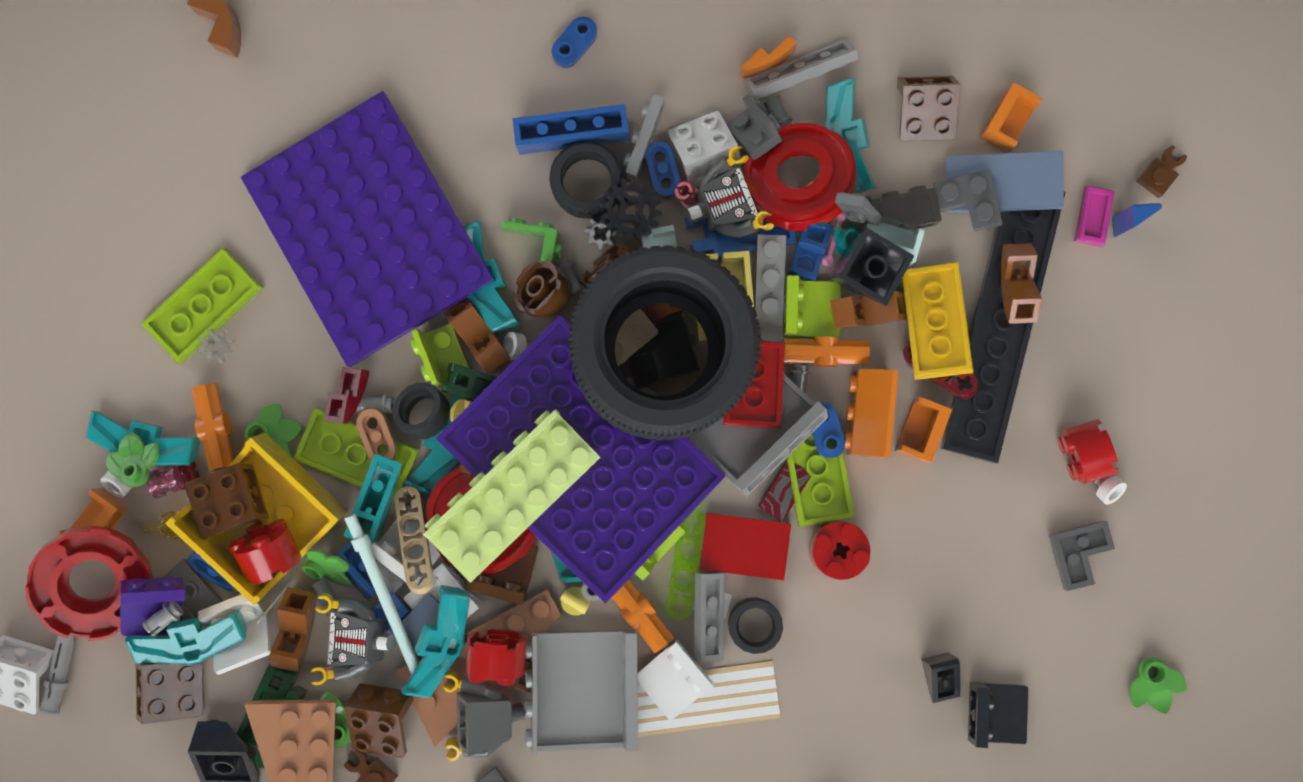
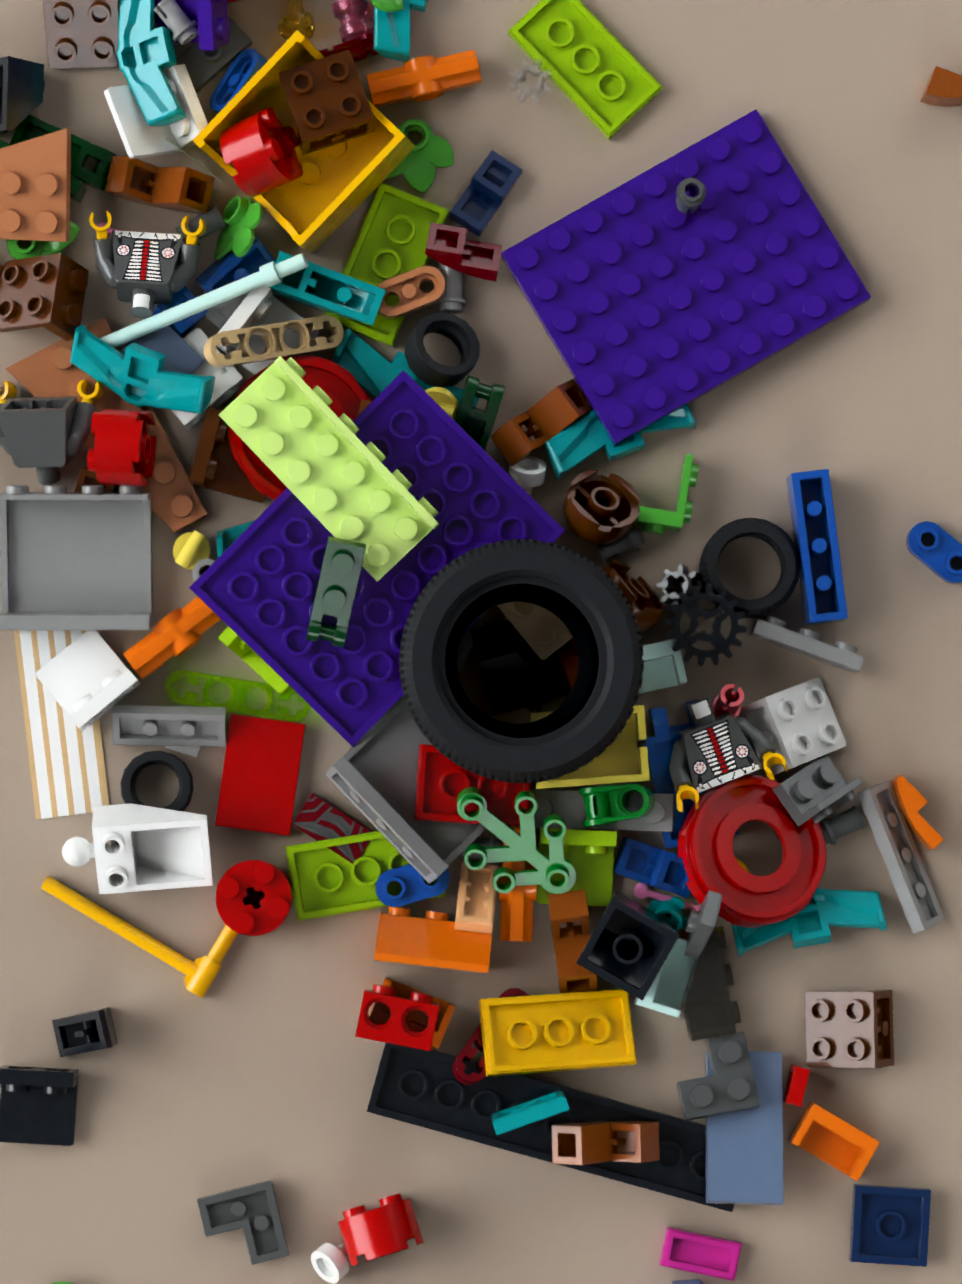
camera: 75 degrees right, 0 degrees up
(301, 221) = (696, 191): none -> dark grey pin
(302, 379) = (485, 193): none -> dark blue slope
(437, 351) = (522, 371): lime bracket -> none
(607, 488) = (336, 590): none -> dark green plate
(662, 170) = (763, 669): blue plate -> none
(767, 278) = (608, 804): none -> green piece
(800, 348) = (520, 846): none -> green plant
(806, 633) = (147, 849): none -> white slope
(836, 381) = (476, 899): none -> light nougat plate
(896, 592) = (198, 973): none -> yellow bar
(941, 441) = (396, 1029): none -> red brick
(970, 145) = (796, 1085): none -> red tile
(1001, 338) = (529, 1112): none -> teal tile
(1071, 77) = (890, 1225): none -> dark blue plate

